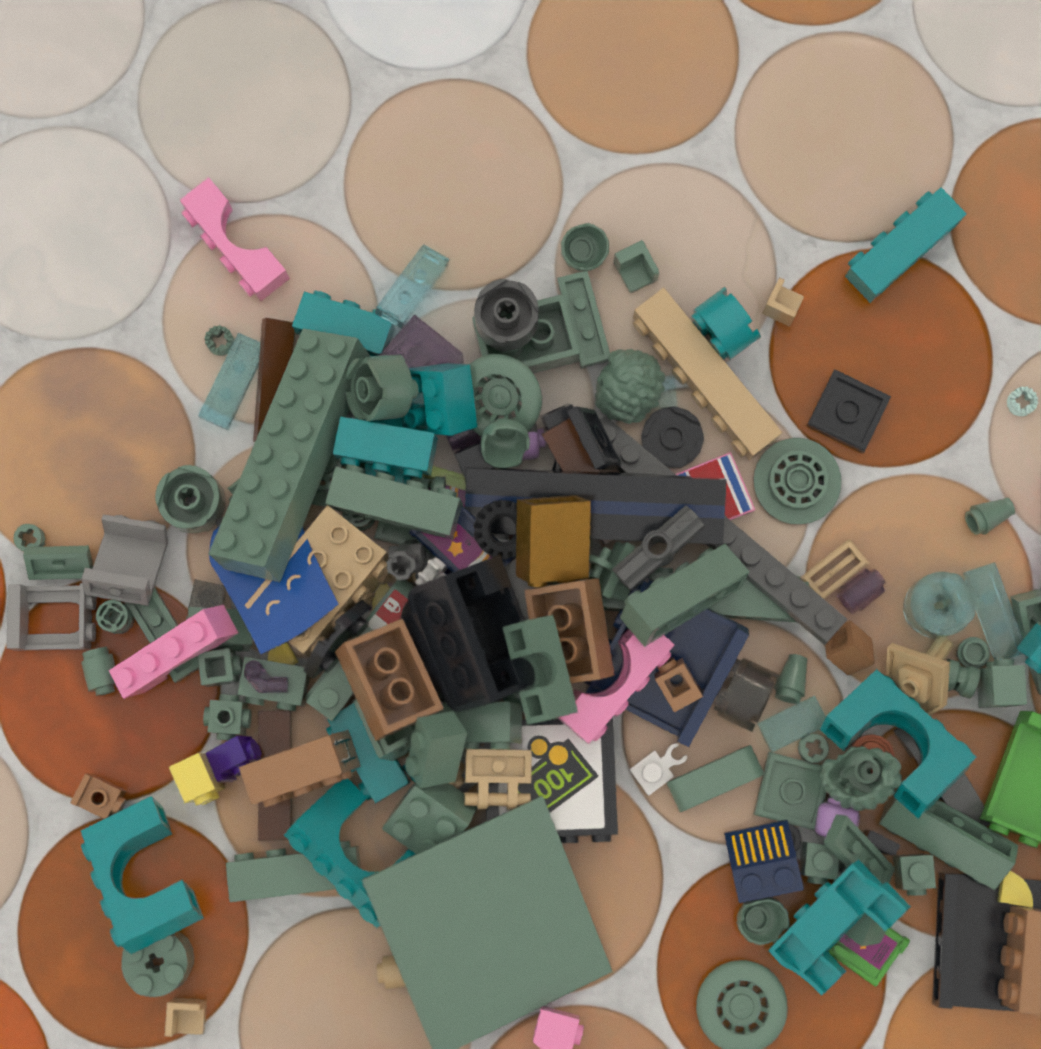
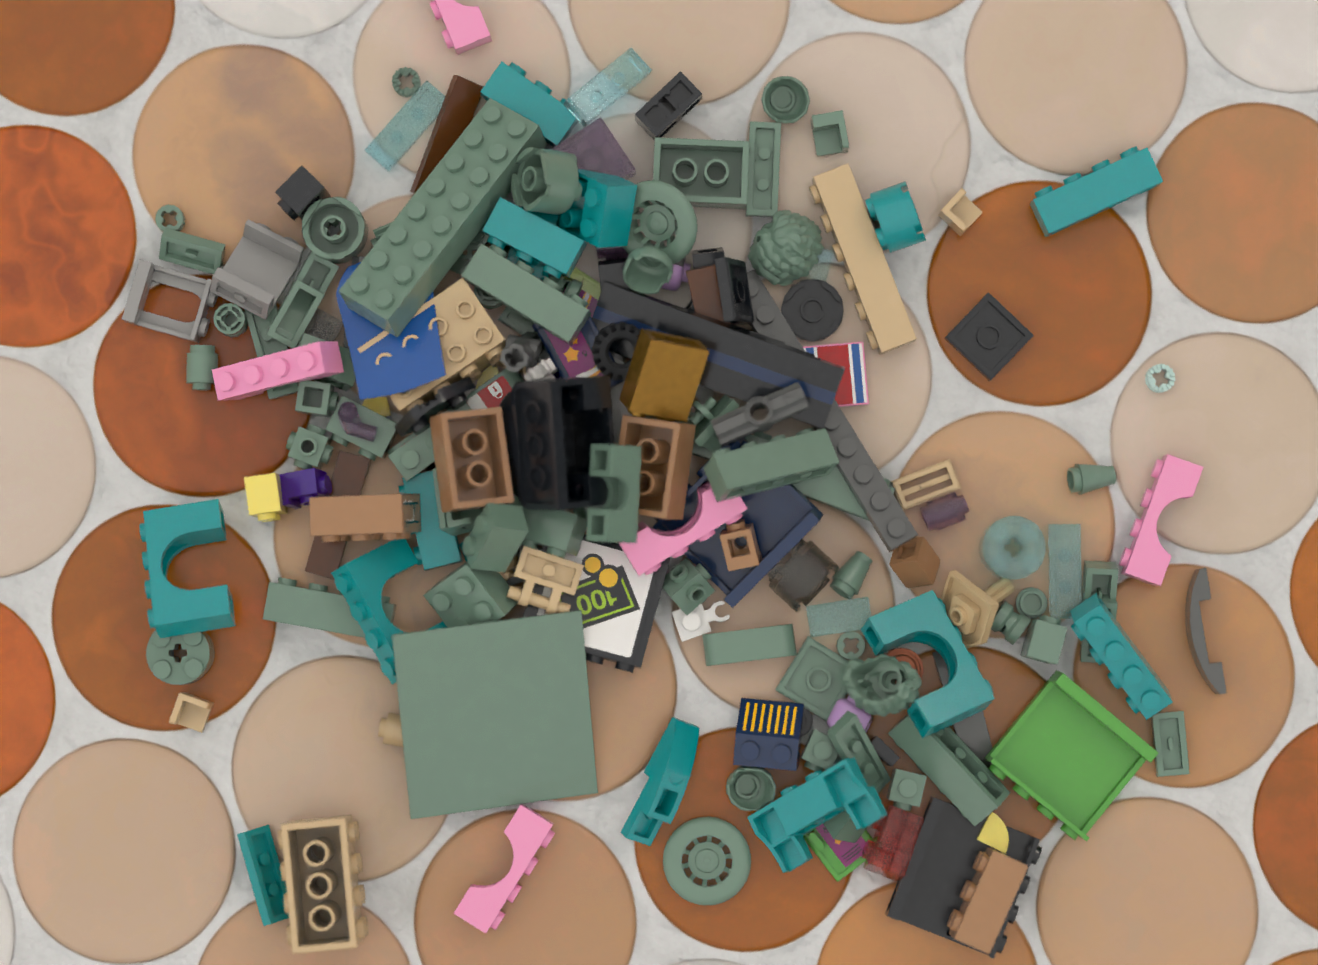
camera: 15 degrees right, 5 degrees up
(87, 790) = (159, 475): medium nougat brick -> none
(145, 472) = (300, 193): none -> black brick
(178, 576) = (302, 300): none -> sand green slope
(478, 273) = (668, 106): none -> black brick
(512, 298) = (696, 132): dark grey brick -> none
(638, 738) = (688, 585): none -> sand green brick
(679, 937) = (668, 778): none -> teal slope
(797, 481) = (918, 388): sand green wheel -> none
(921, 933) = (892, 843): none -> clear red brick

